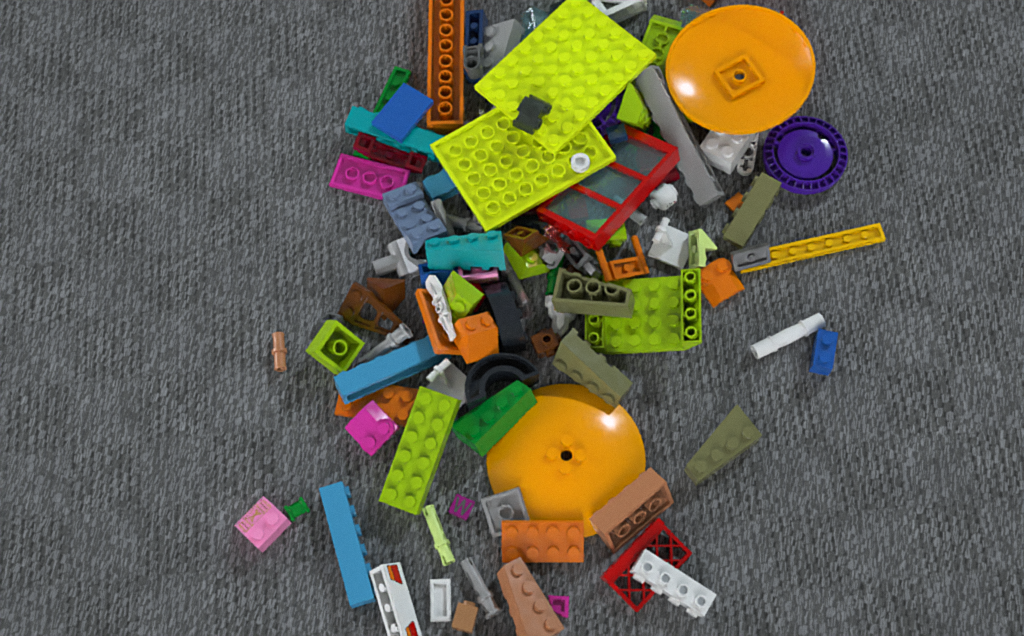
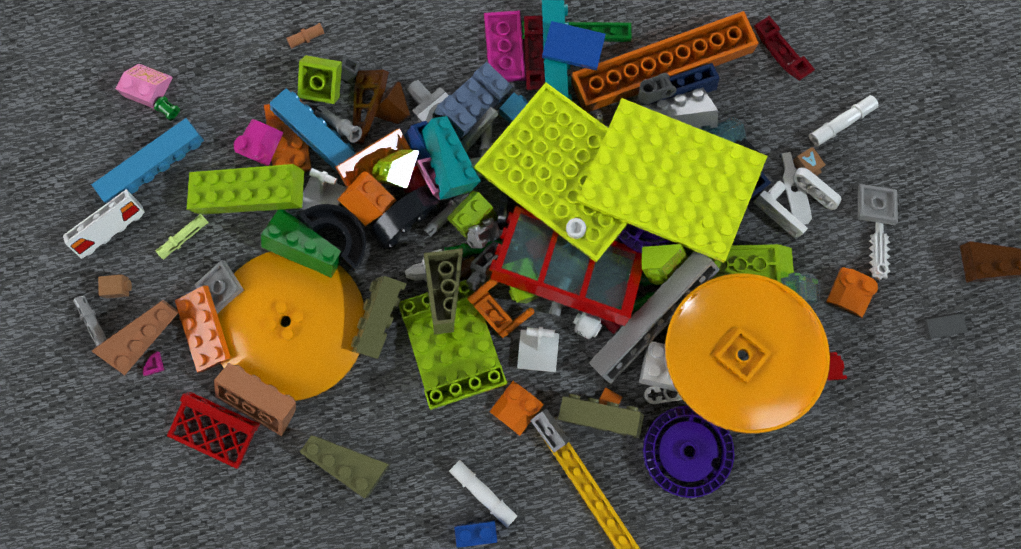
camera: 65 degrees right, 10 degrees up
(440, 600) = (126, 260): white tile -> none
(441, 305) = (384, 155): white piece -> none
(461, 507) = (214, 247): magenta tile -> none
(484, 596) = (139, 297): light grey pin -> none
(524, 239) = (478, 206): reddish brown slope -> none
(530, 114) = (607, 160): pearl dark grey cylinder -> none
(545, 343) = (389, 259): reddish brown brick -> none
(553, 234) = (489, 235): clear red plate -> none
(617, 133) = (628, 254): dark blue tile -> none
(673, 583) = (197, 459): white brick -> none
(698, 245) = (544, 375): yellowish green slope -> none

